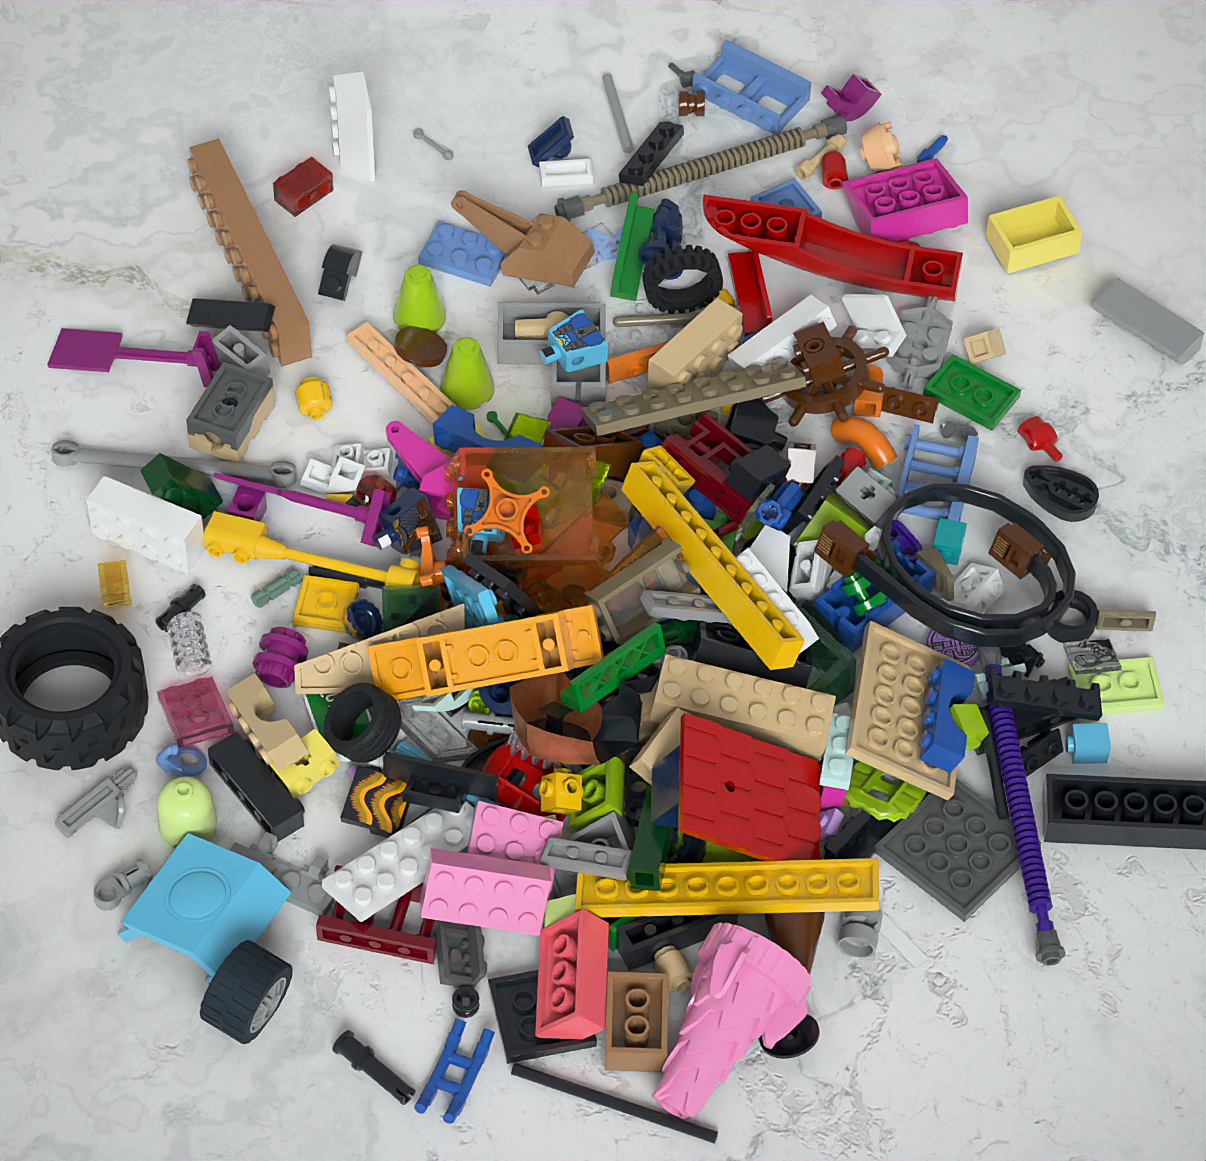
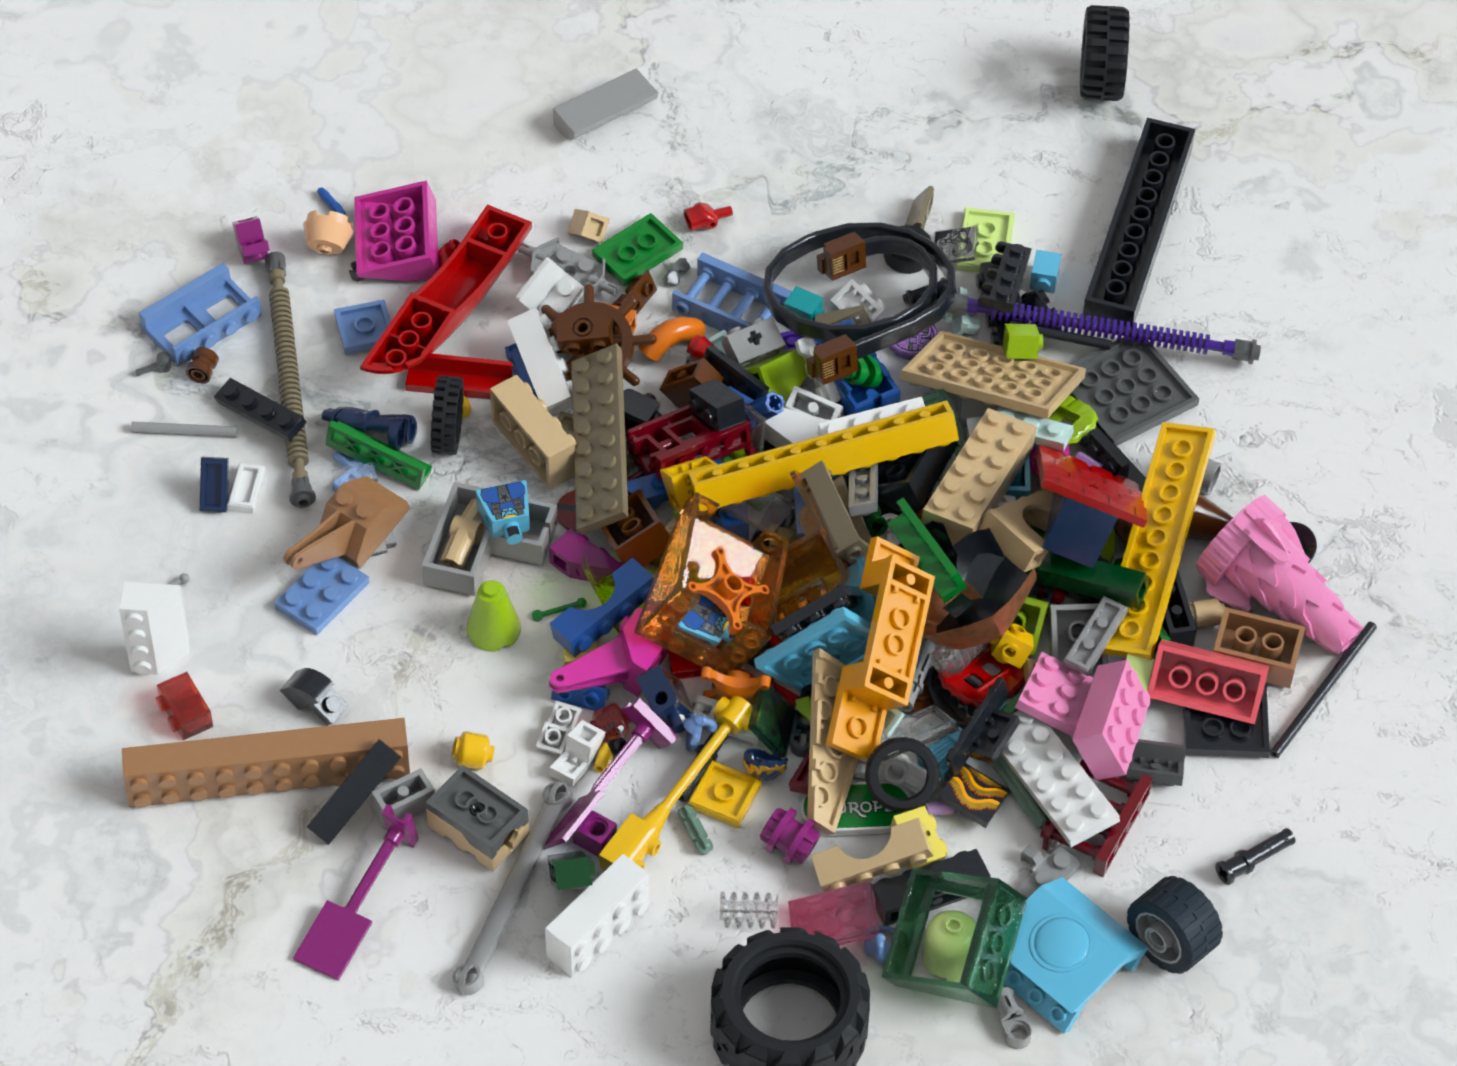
camera: 75 degrees left, 0 degrees up
(100, 803) = (914, 1020): light grey piece -> none
(114, 584) = (656, 962): clear yellow brick -> none
(180, 605) = (697, 912): black pin -> none
(182, 822) = (990, 945): none -> clear green windscreen
(380, 550) = (694, 728): none -> medium blue piece
(399, 373) = (472, 670): light nougat plate -> none
(419, 301) = (386, 638): lime cone -> none
(420, 346) = (437, 649): reddish brown tile -> none
(448, 1057) = (1264, 782): blue piece -> none
(465, 1011) = (1199, 782): black bush -> none
(631, 363) = (517, 464): orange plate -> none
(660, 319) = (482, 403): dark tan piece -> none
(807, 168) = (298, 273): tan bar -> none
(833, 170) = (333, 278): red brick -> none
(941, 740) = (1035, 355): blue arch -> none
(1033, 234) = (476, 153): light yellow piece -> none
(1058, 504) = (767, 230): black piece -> none

